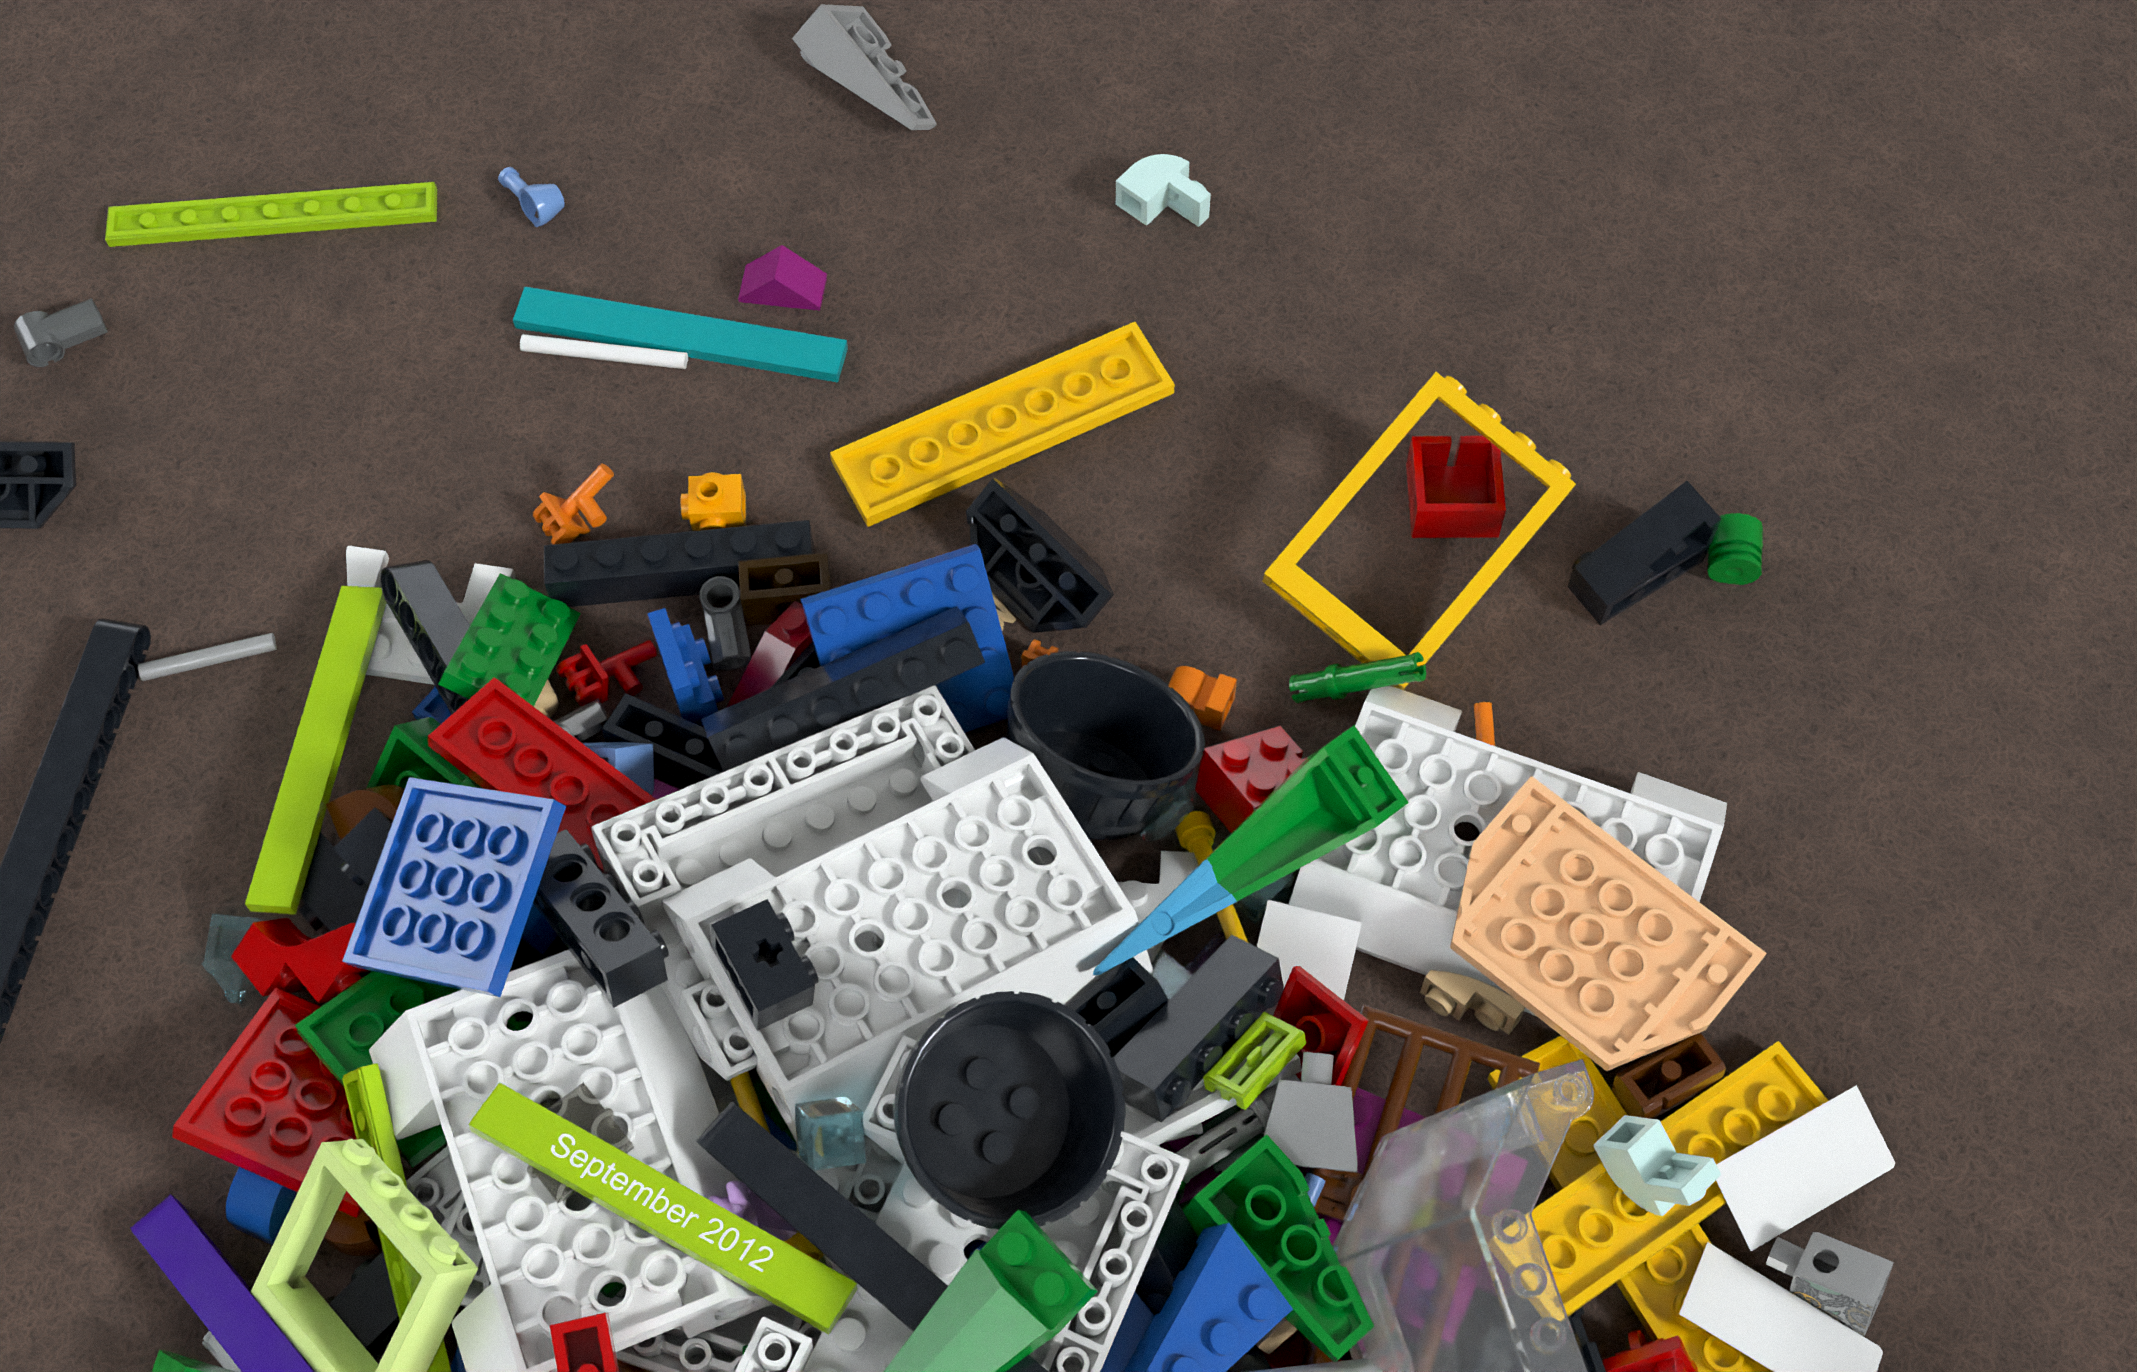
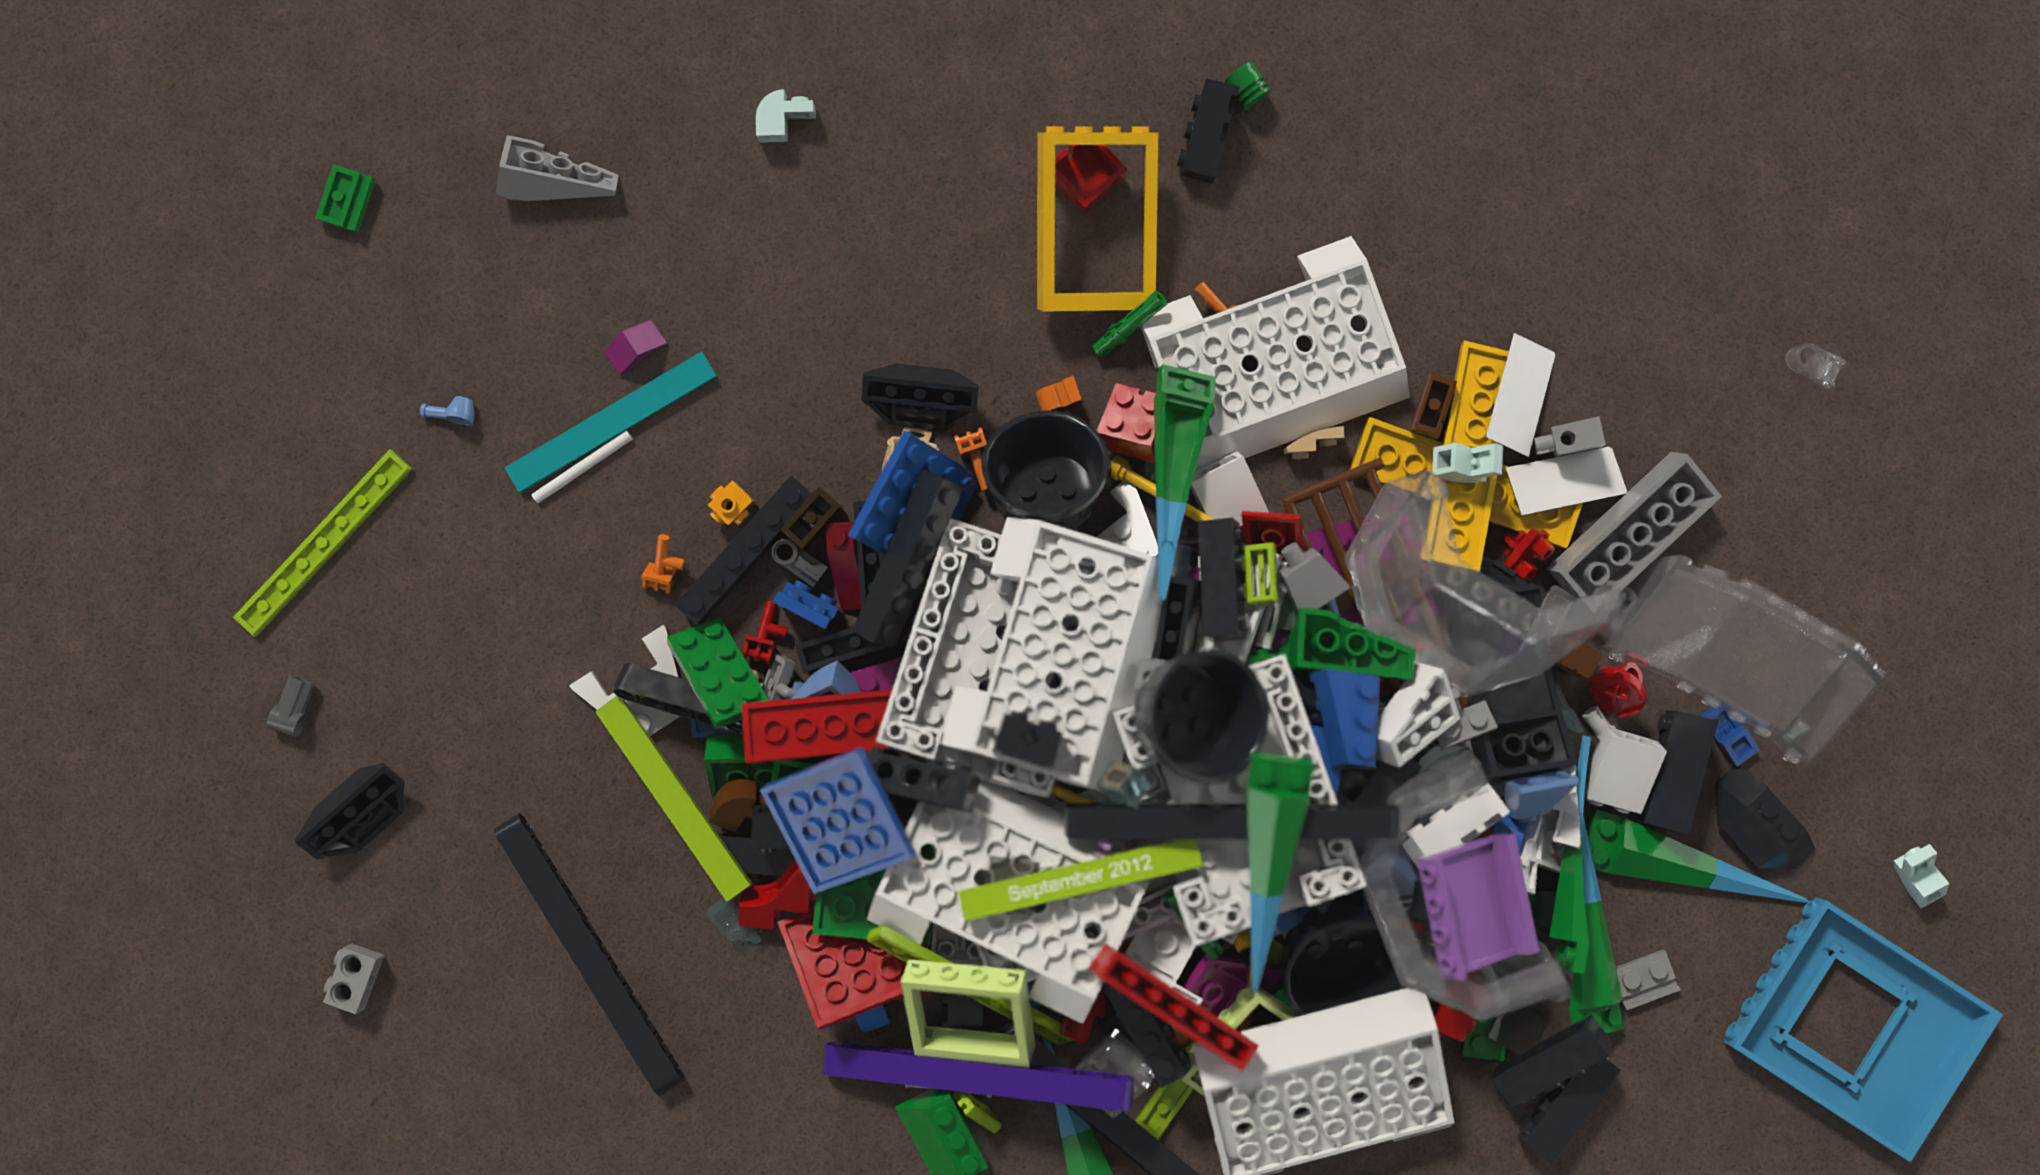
camera: 45 degrees left, 25 degrees up
(207, 656) = (561, 799): light grey bar -> none
(1001, 423) = (826, 328): yellow plate -> none
(1593, 933) = (1350, 369): light nougat plate -> none

